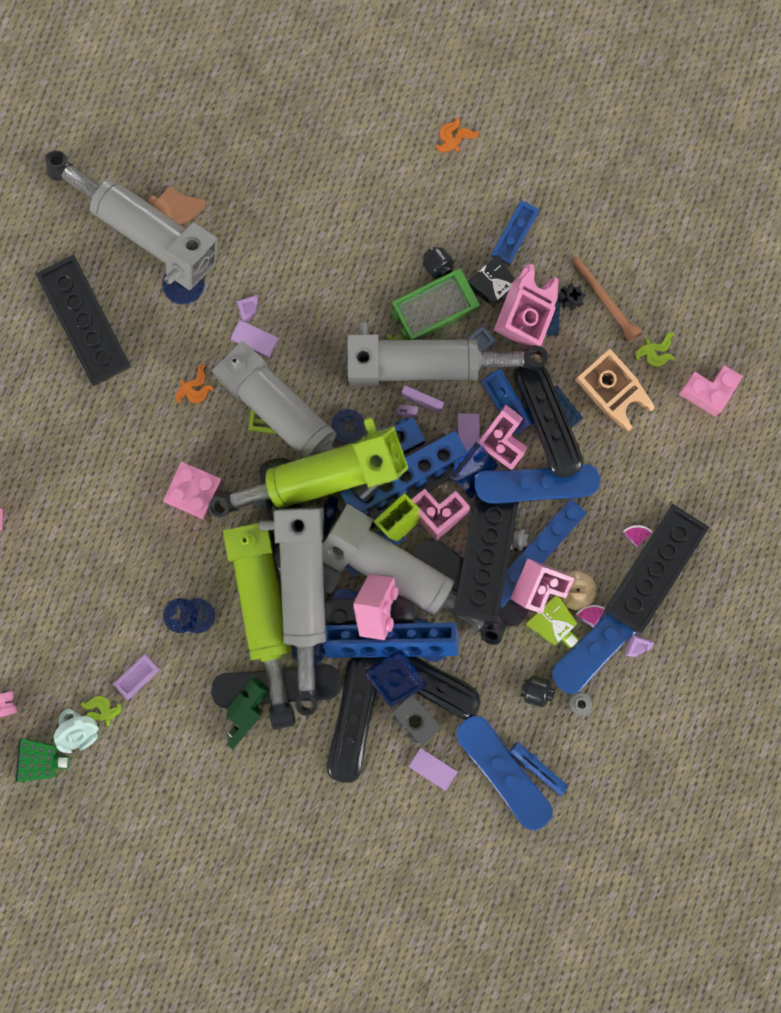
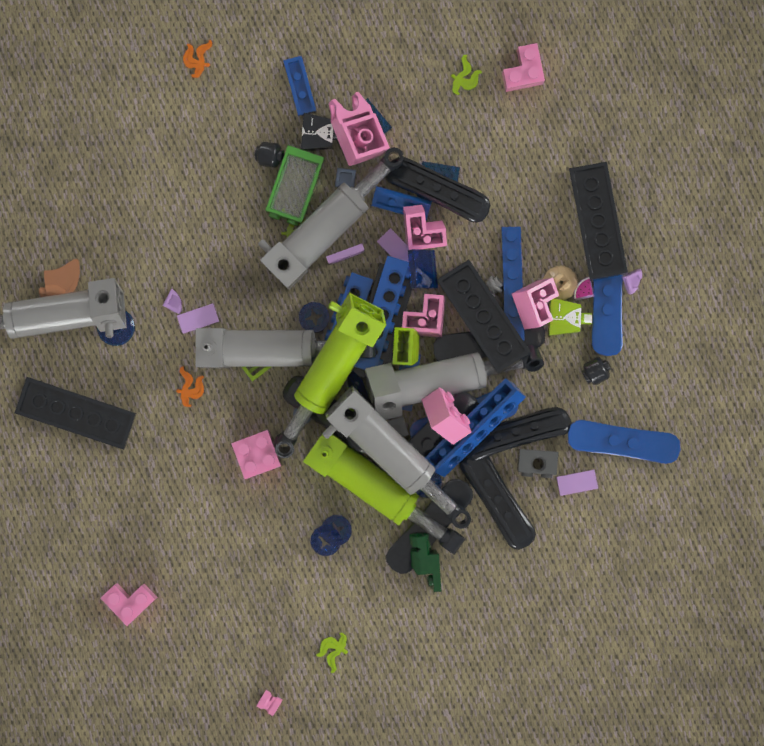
camera: 45 degrees left, 5 degrees up
(38, 760) = (325, 715): green torso -> none
(74, 733) = (332, 677): light aqua tile -> none
(136, 676) = (335, 605): lavender tile -> none
(395, 678) = (500, 449): clear blue tile -> none
(407, 410) = (342, 271): lavender tile -> none
(521, 753) = (643, 418): blue pin -> none
(534, 484) = (470, 240): blue piece -> none
(567, 300) = (380, 98): black gear -> none
(574, 707) = (626, 356): light grey plate -> none
(622, 389) = (468, 129): light nougat brick -> none
(630, 330) = (435, 79): nougat piece -> none
(637, 534) = (564, 209): dark pink tile -> none

